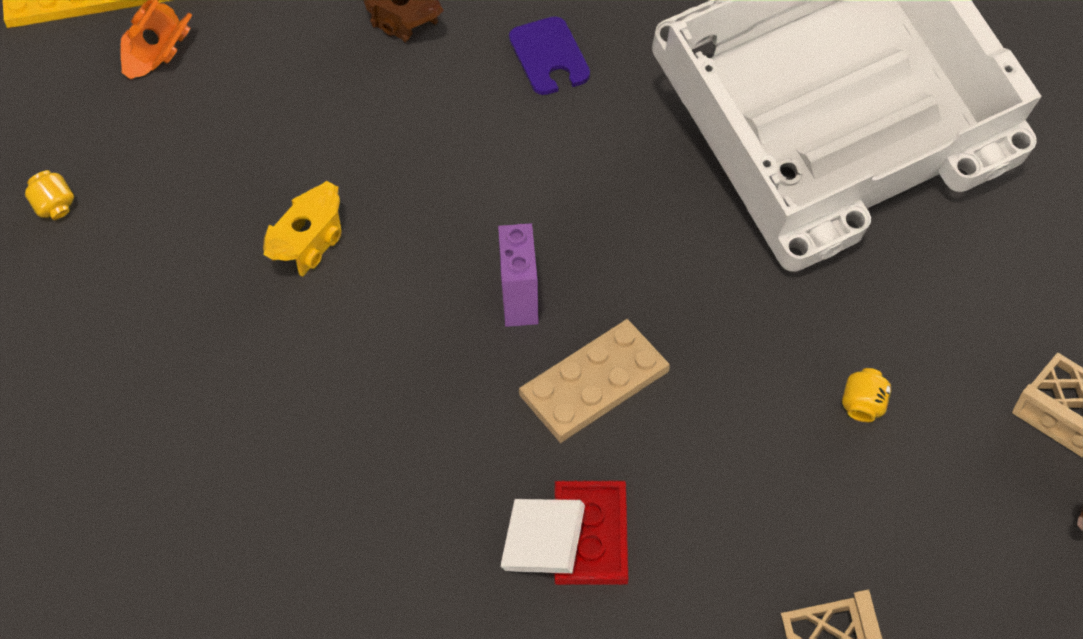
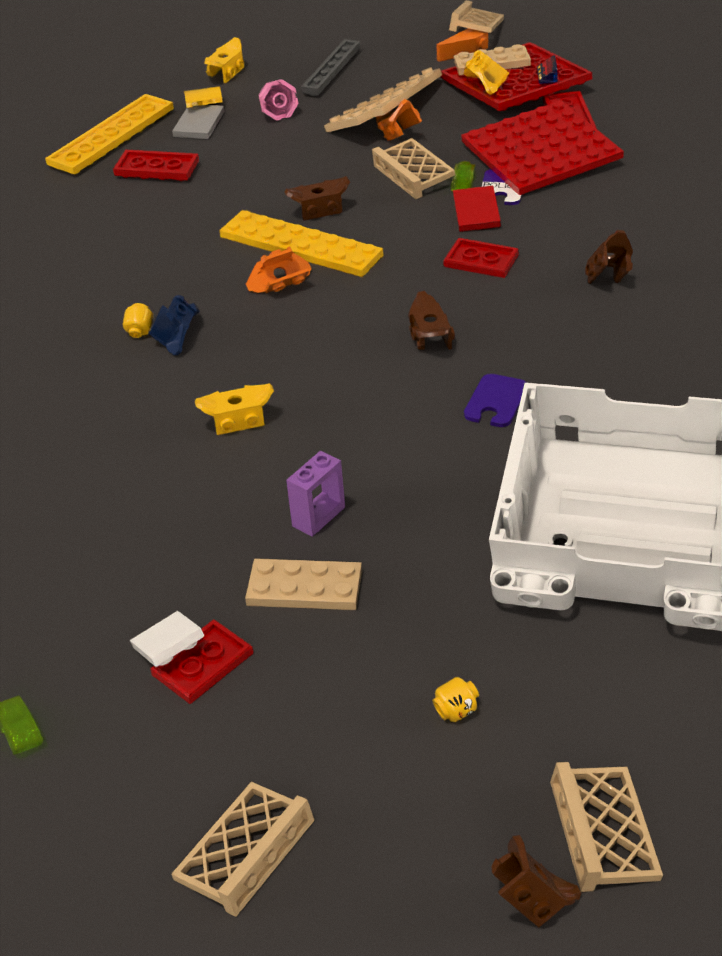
camera: 45 degrees right, 15 degrees down
(93, 178) = (172, 324): none -> dark blue piece

